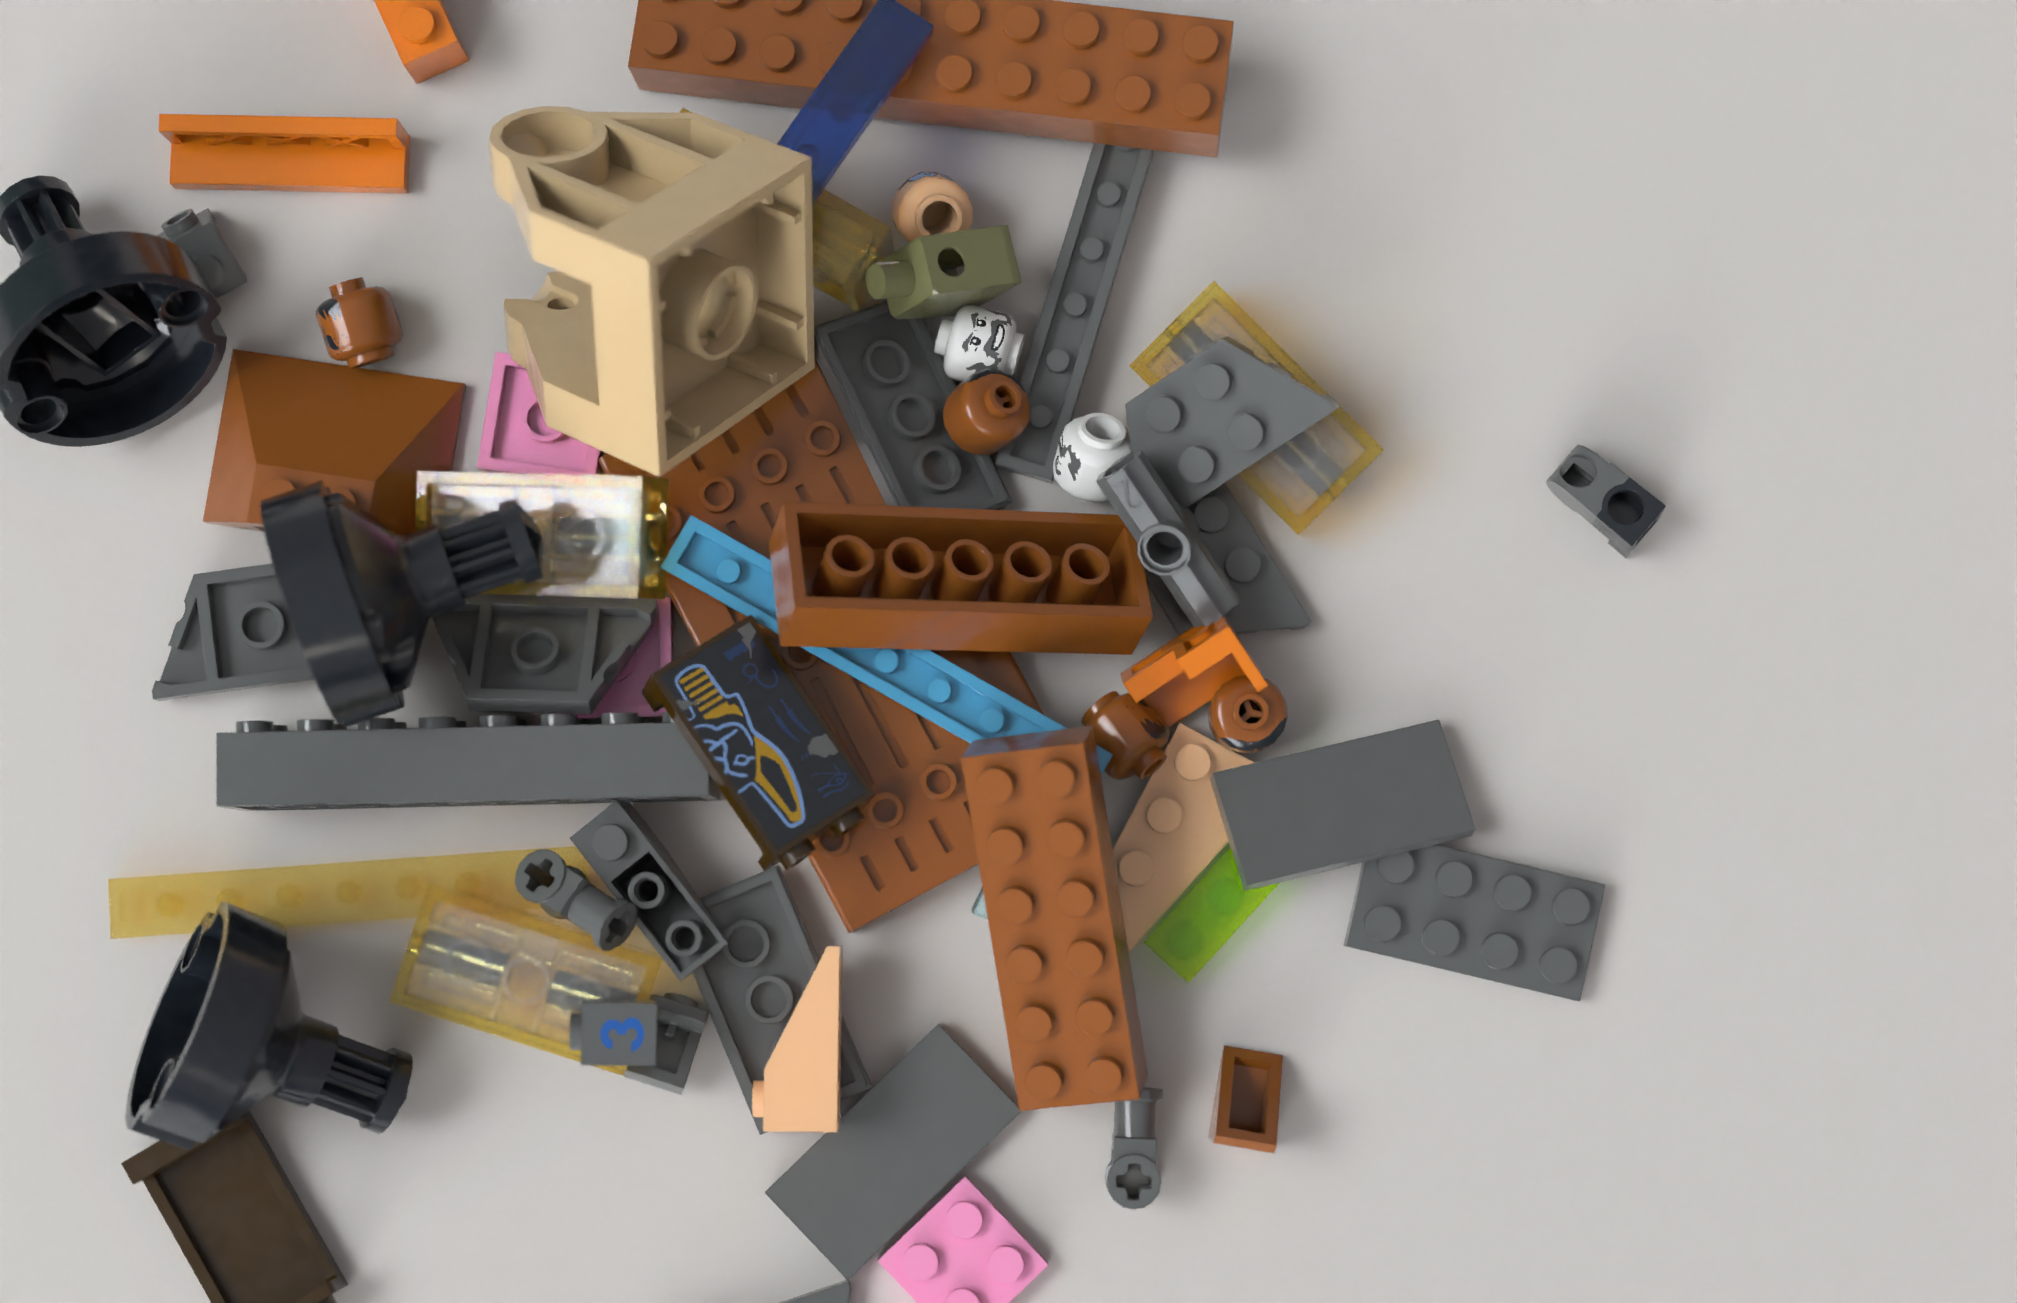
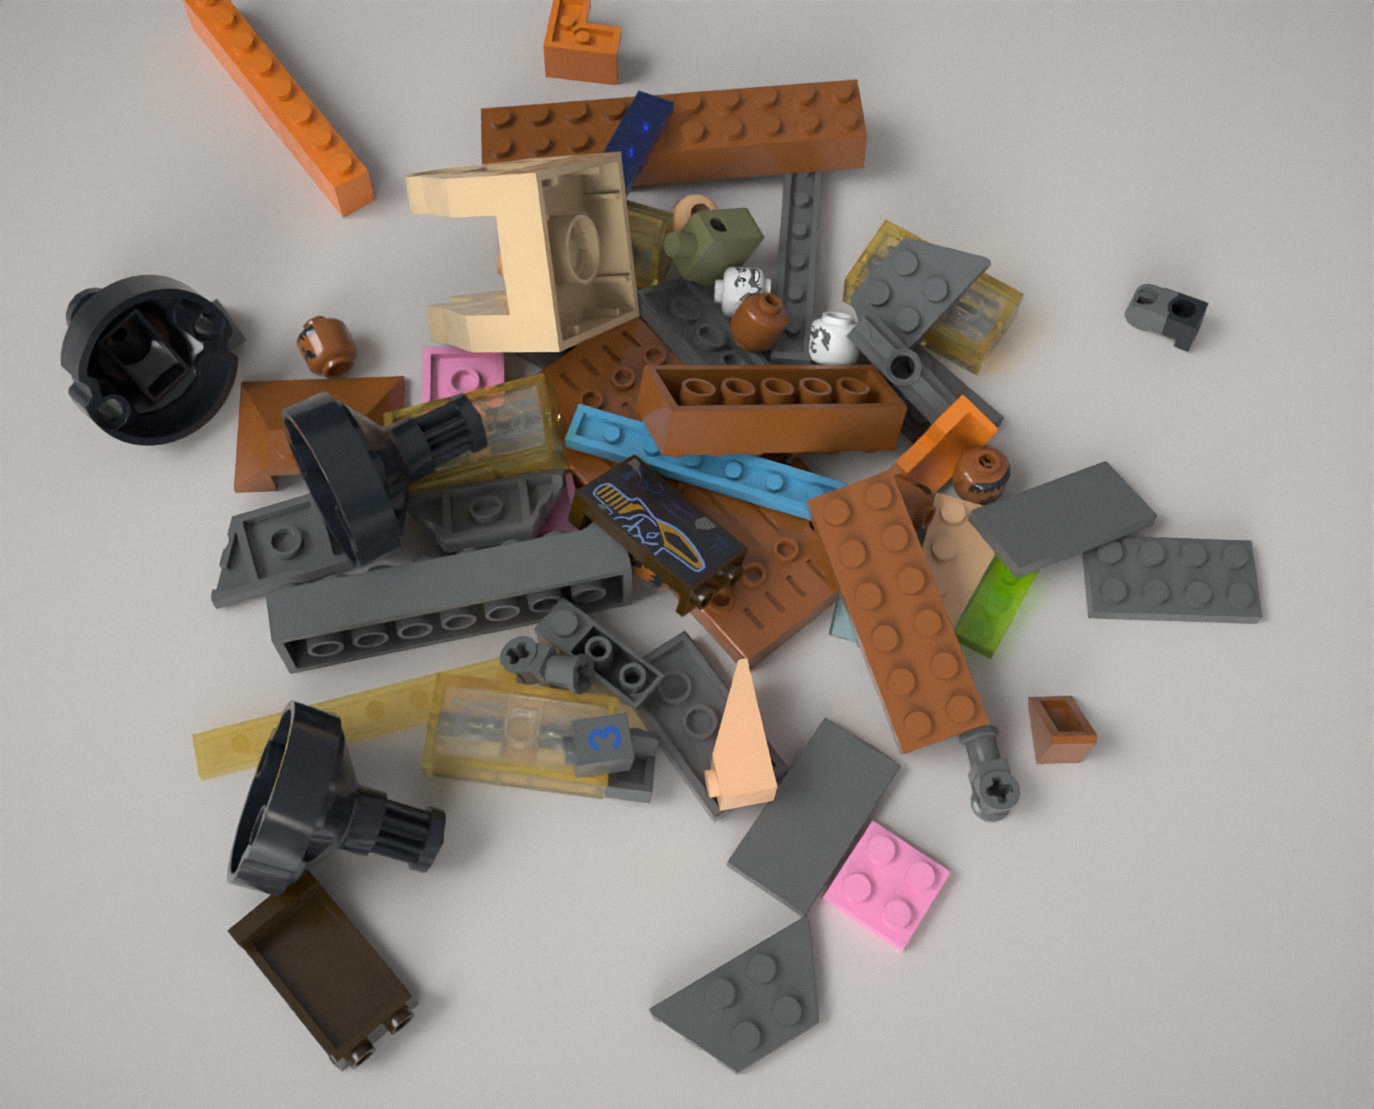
camera: 15 degrees left, 20 degrees down
(287, 153) = (264, 263): orange fence -> none

